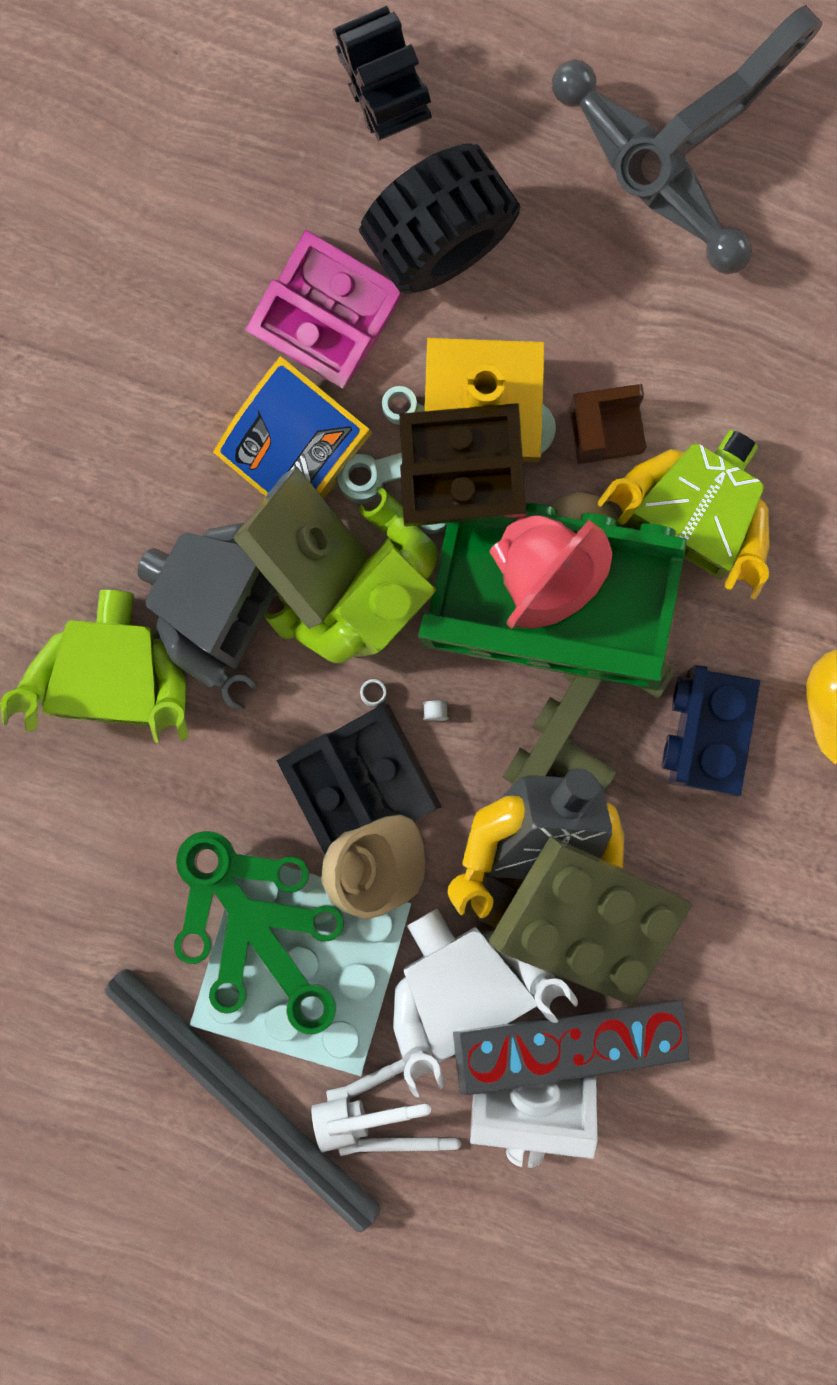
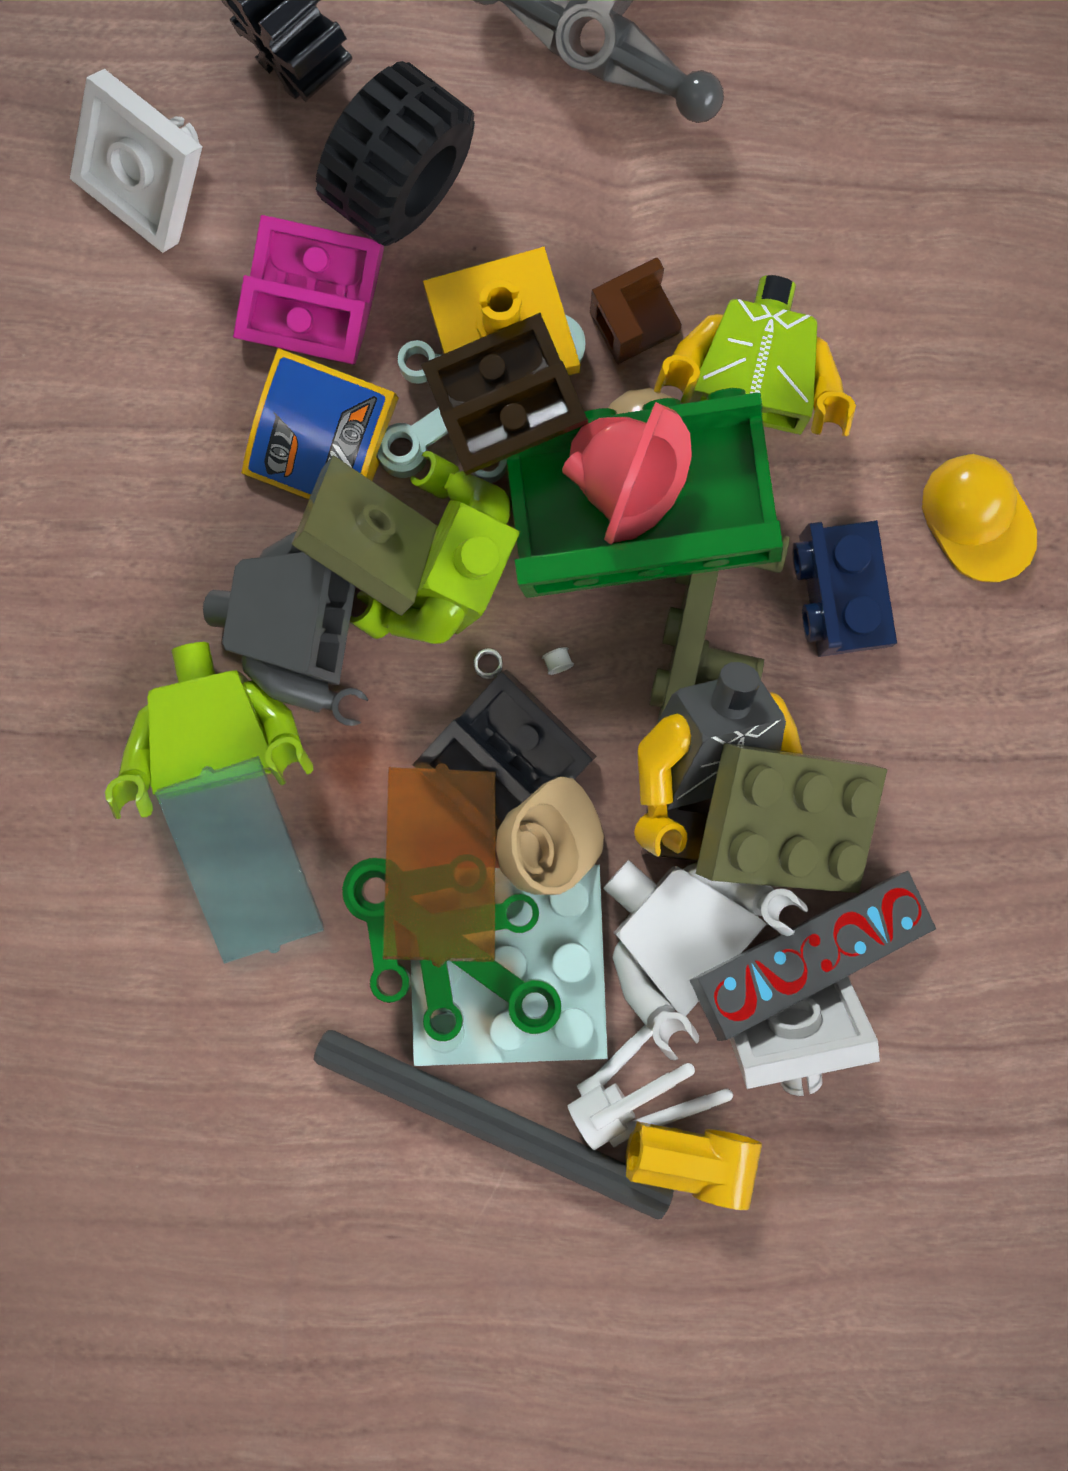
camera: 20 degrees left, 0 degrees up
(98, 794) = (240, 859): none -> clear light blue piece
(211, 148) = (135, 160): none -> white tile
(269, 858) = (440, 865): none -> clear orange piece
(418, 1200) = (711, 1165): none -> yellow piece

